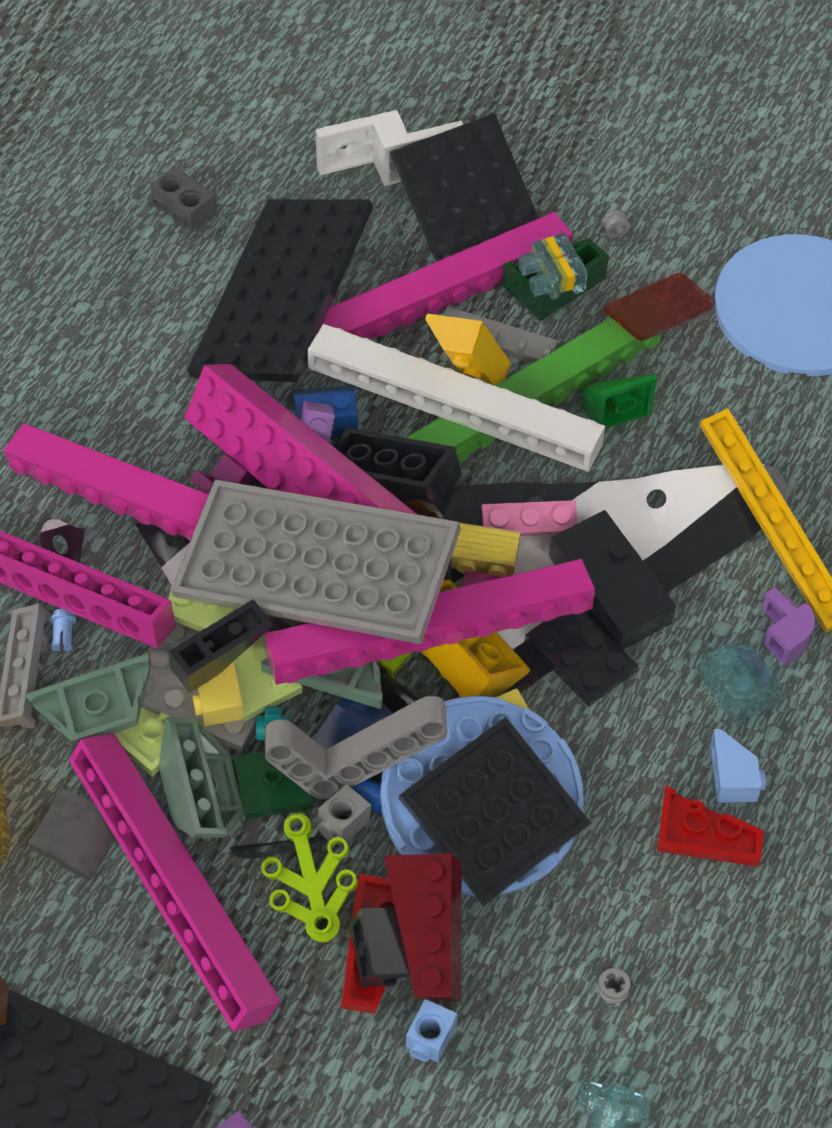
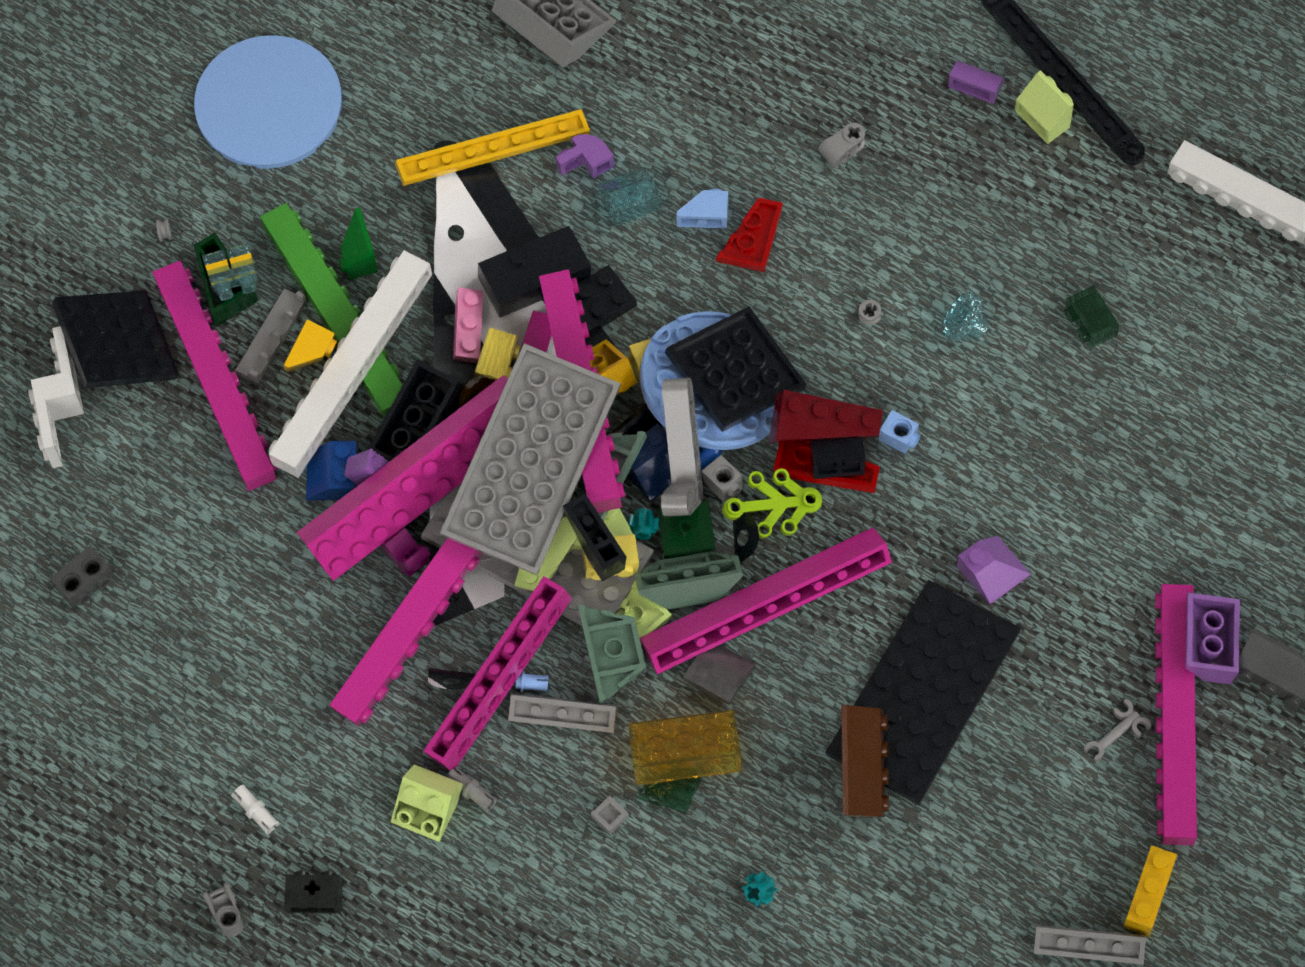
camera: 80 degrees left, 10 degrees up
(282, 287) = (203, 496): black plate -> none
(659, 306) = (268, 202): clear red piece -> none

